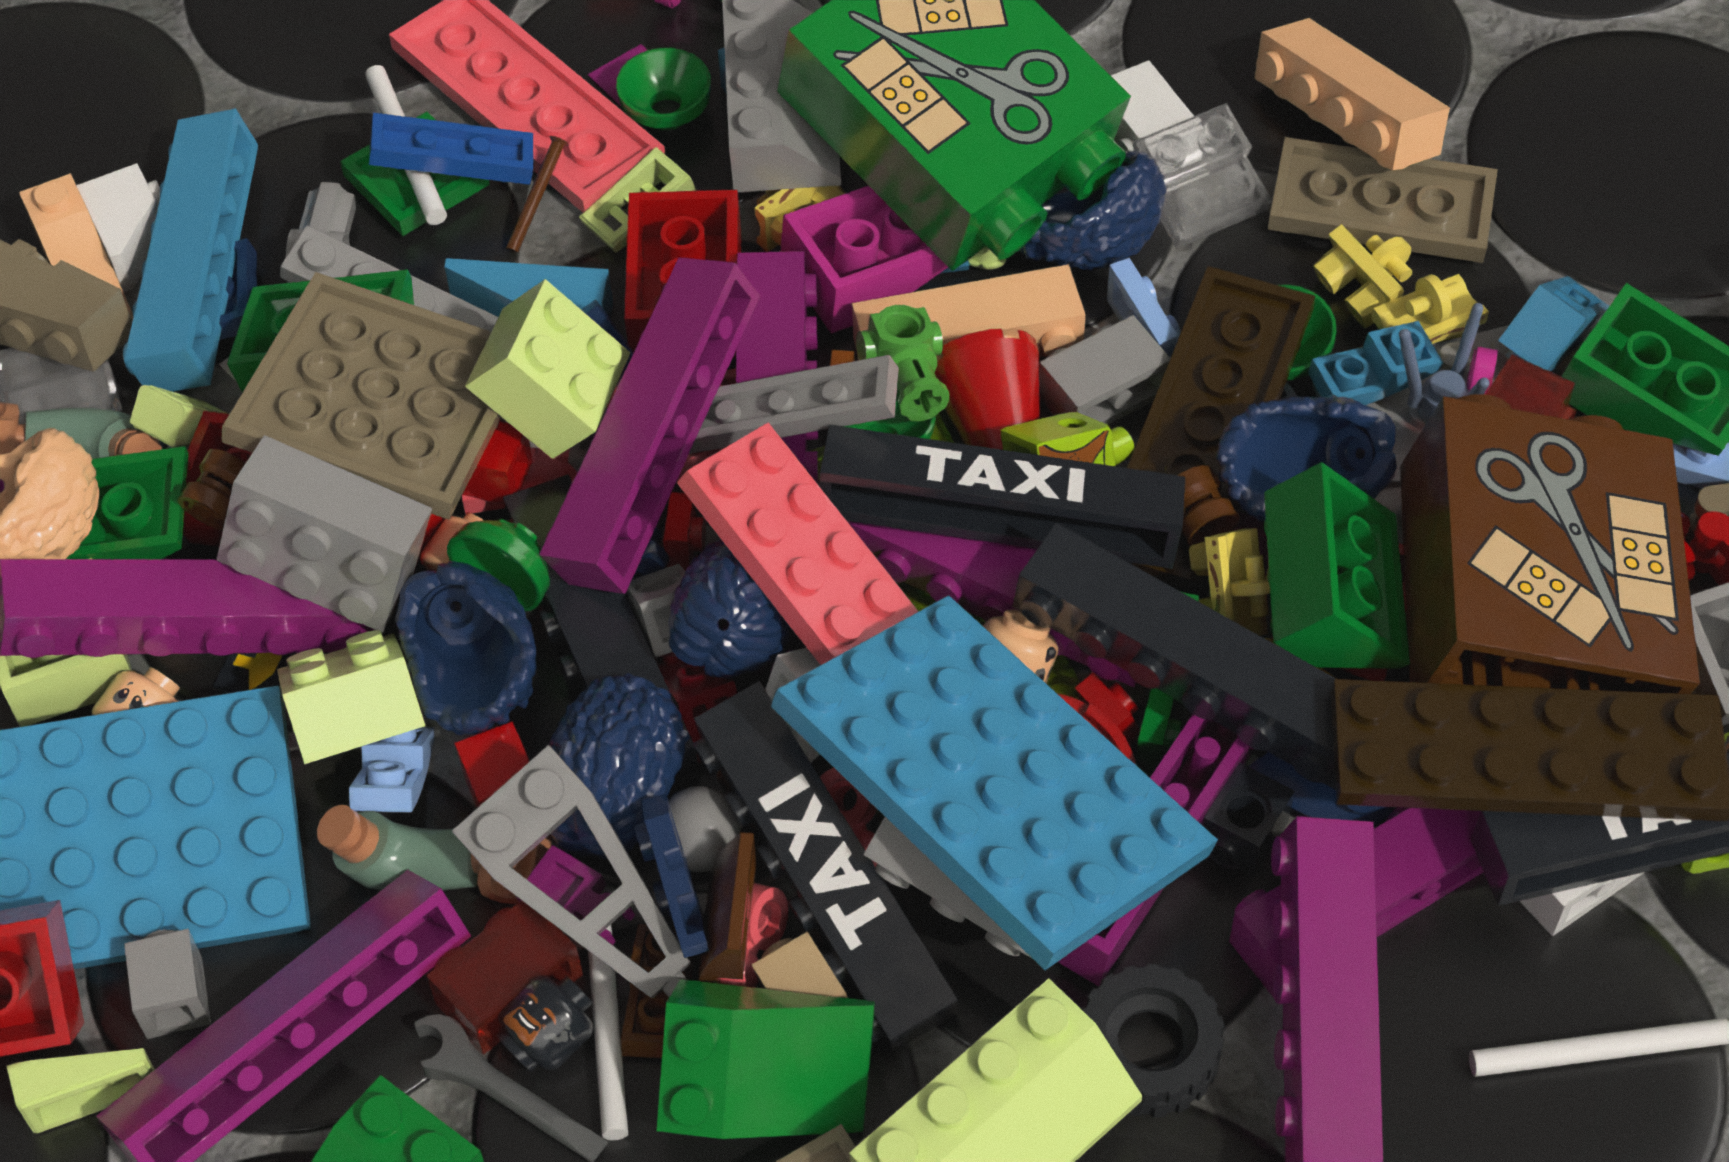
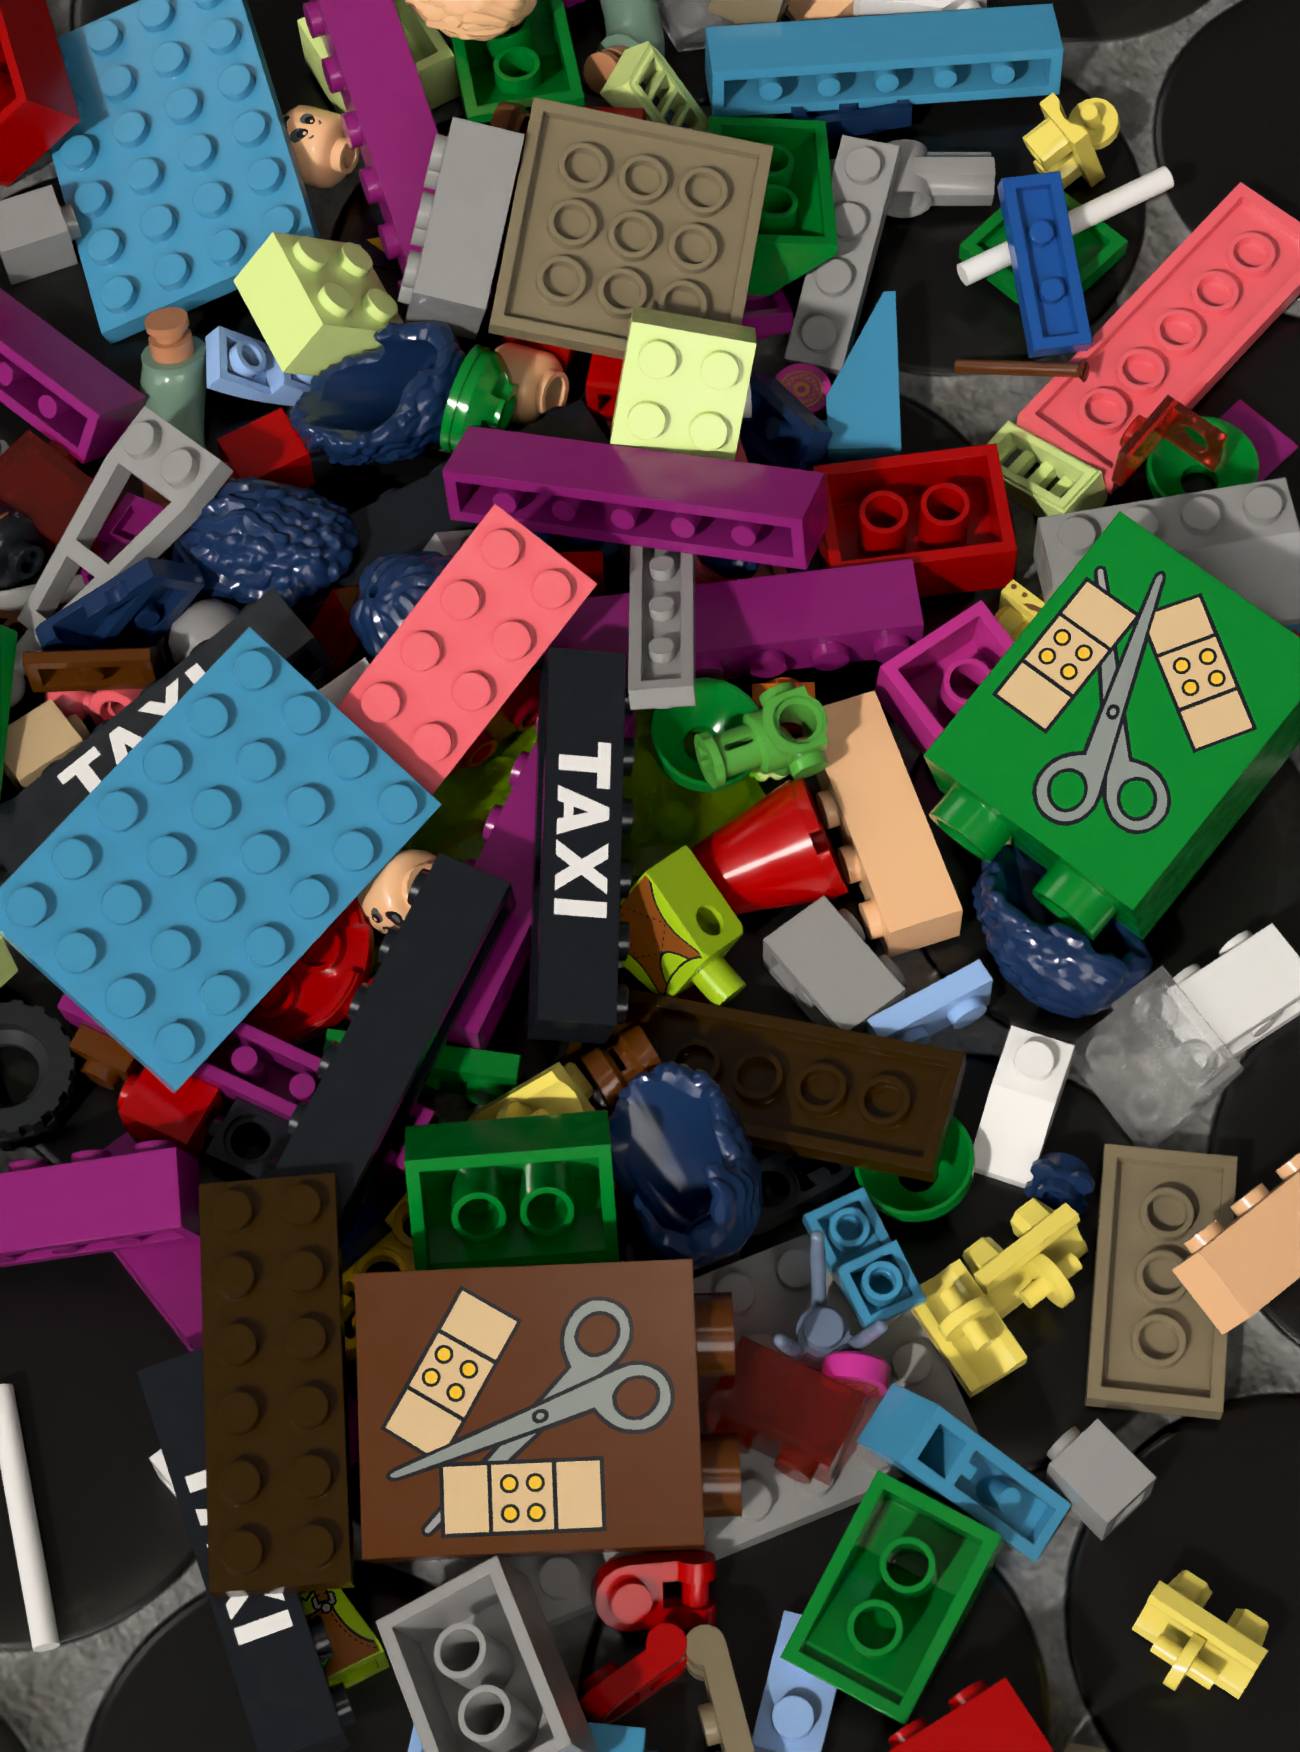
camera: 85 degrees right, 10 degrees up
(321, 128) = (1072, 142): none -> light yellow hips
(642, 95) = (1167, 422): none -> clear red bracket
(1145, 940) = (103, 1058): none -> reddish brown plate
(1202, 897) = (156, 1113): none -> red brick
(1225, 245) = (1021, 1105): none -> white slope
(1299, 249) = (1060, 1180): none -> dark blue plate
(1552, 248) = (1098, 1477): none -> light grey brick
(1679, 206) = (1197, 1640): none -> light yellow hips

